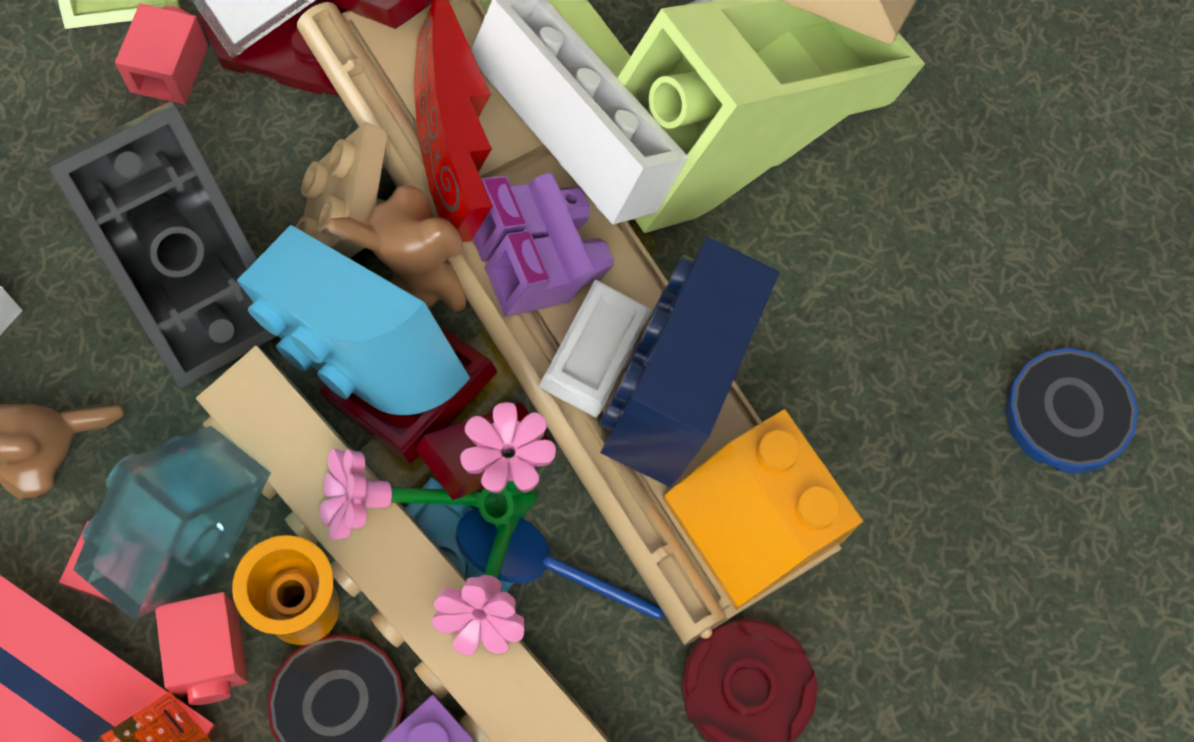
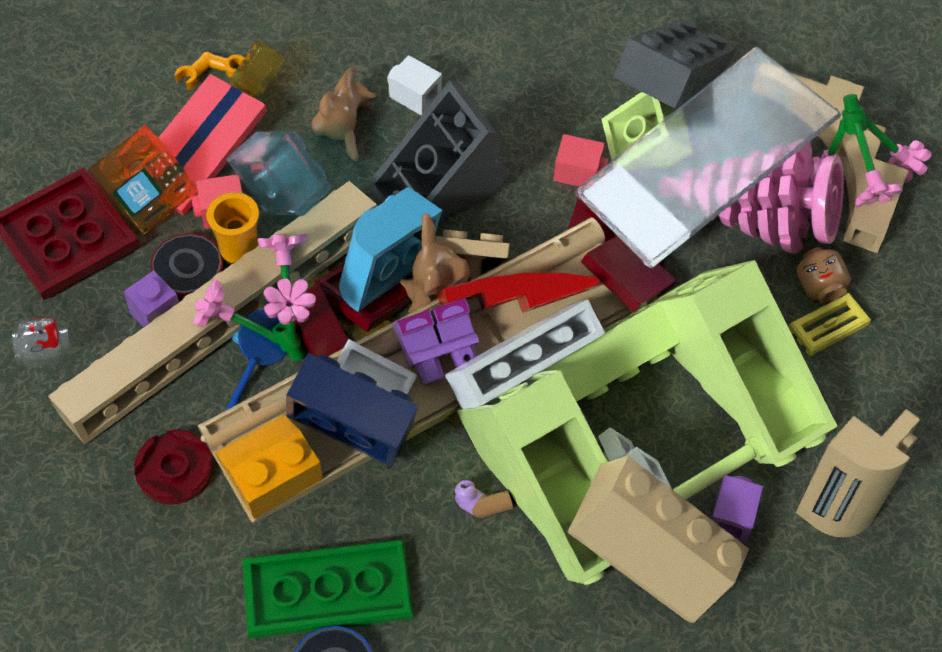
camera: 90 degrees right, 10 degrees down
(789, 209) = (480, 504): none -> arm
(945, 429) = (326, 588): none -> green tile

